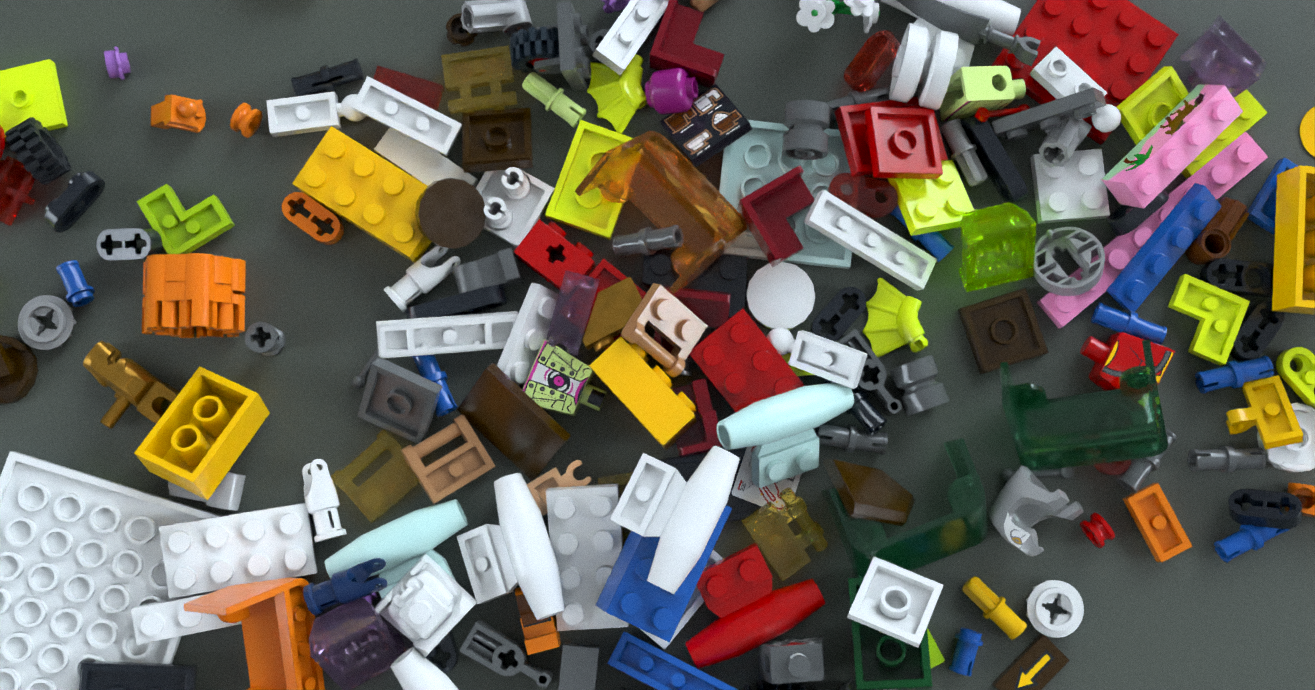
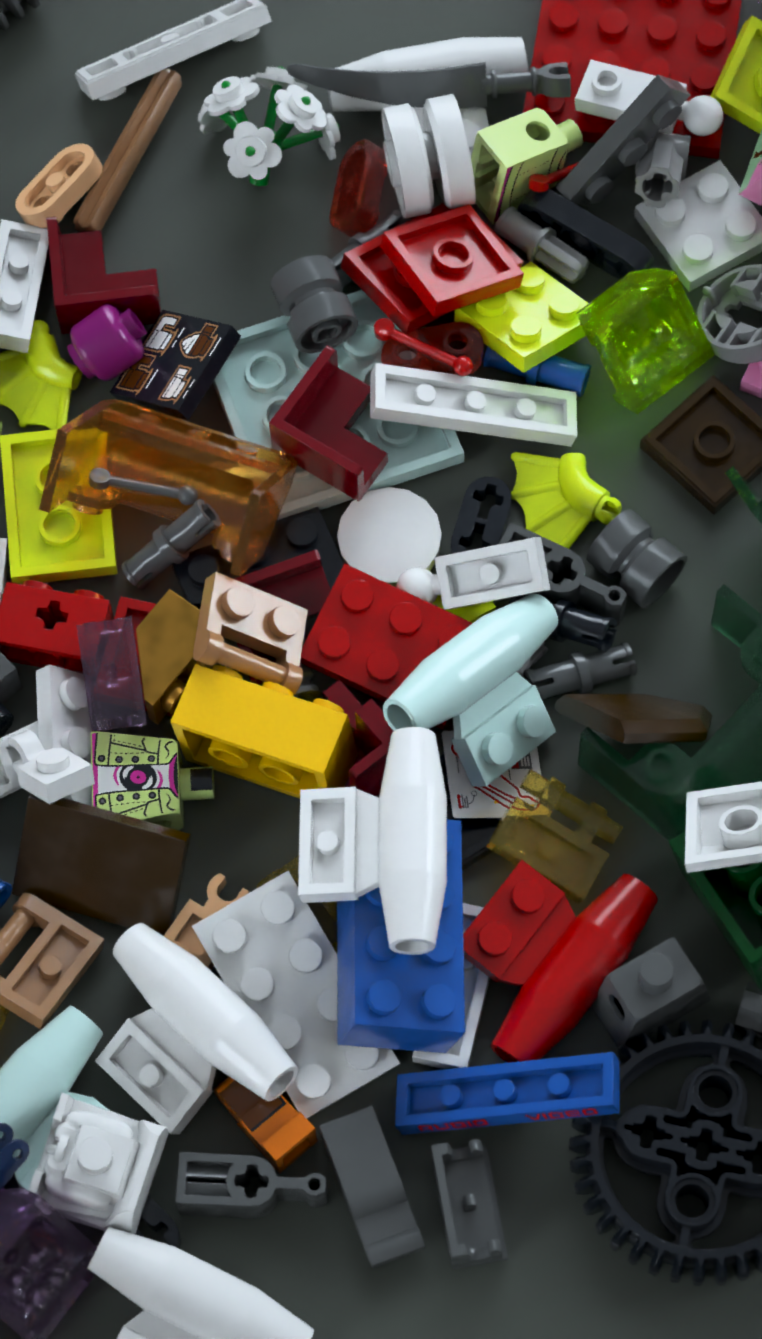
camera: 20 degrees left, 15 degrees down
(506, 358) = (49, 772): none -> white plate
(625, 181) = (101, 479): none -> dark grey hinge
(840, 169) = (385, 330): none -> red hinge

